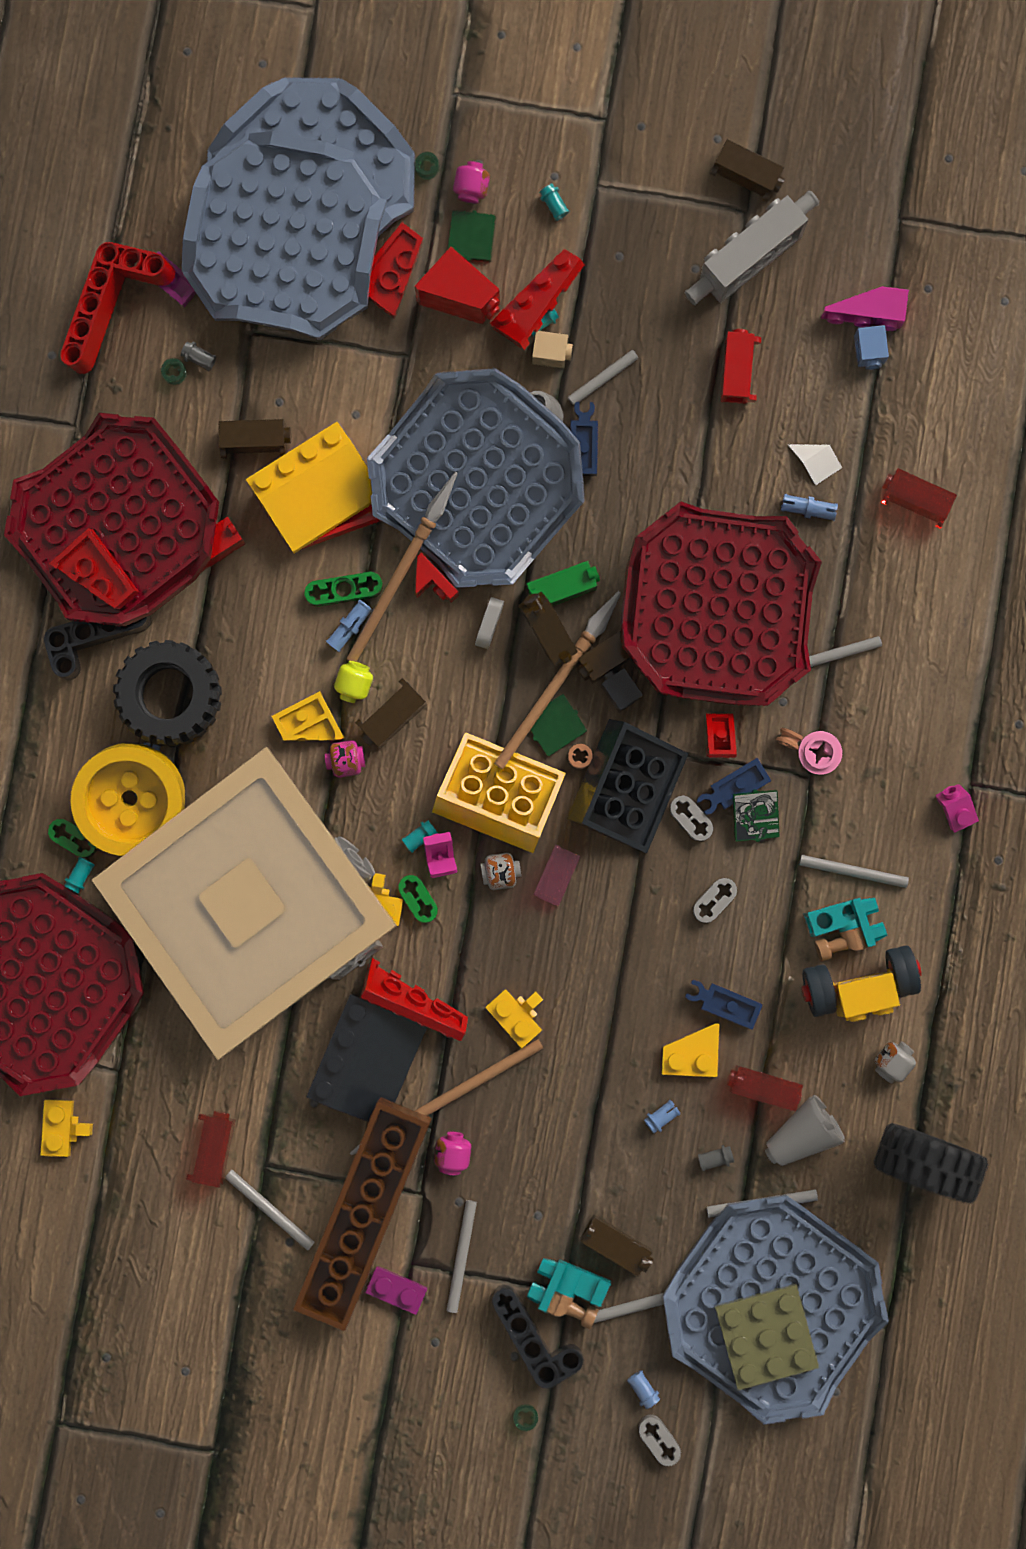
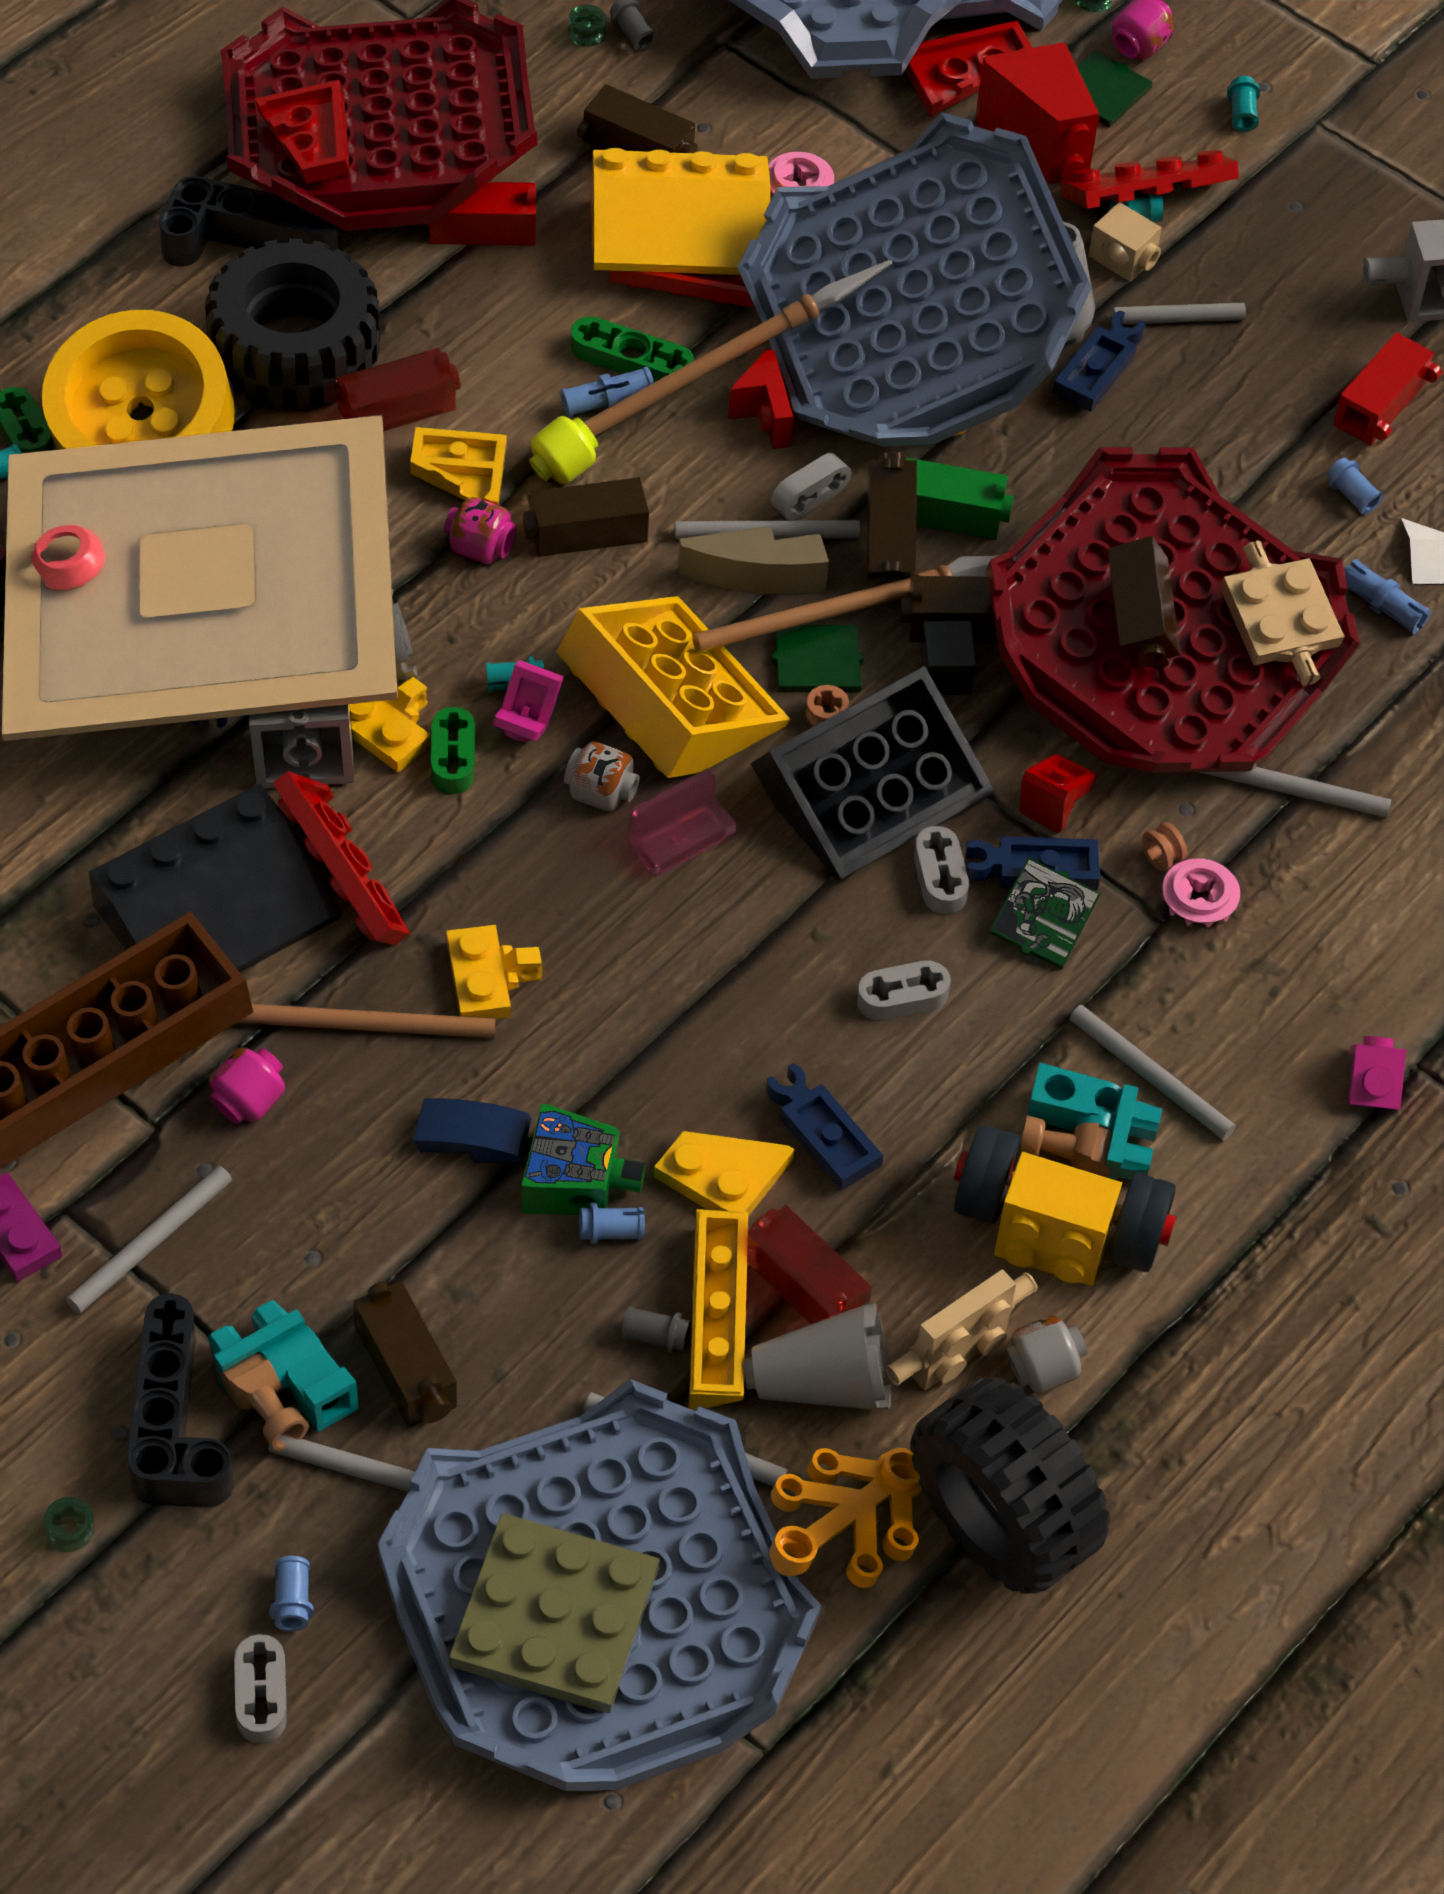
camera: 25 degrees right, 30 degrees down
(185, 929) = (72, 571): none -> coral piece
(247, 697) = (400, 389): none -> clear red brick
(354, 399) = (807, 166): none -> bright pink gear
(482, 661) = (781, 529): none -> light grey bar
(493, 690) = (755, 561): none -> dark tan slope
(568, 1108) = (480, 1128): none -> dark blue slope
(628, 1098) = (574, 1164): none -> torso
(713, 621) = (1144, 603): none -> dark brown brick
(737, 1131) = (718, 1308): none -> yellow slope
(756, 442) = (1345, 476): none -> medium blue pin
(775, 569) = (1281, 612): none -> tan plate
(854, 1089) = (962, 1331): none -> tan plate
(860, 1198) = (850, 1508): none -> light orange plant

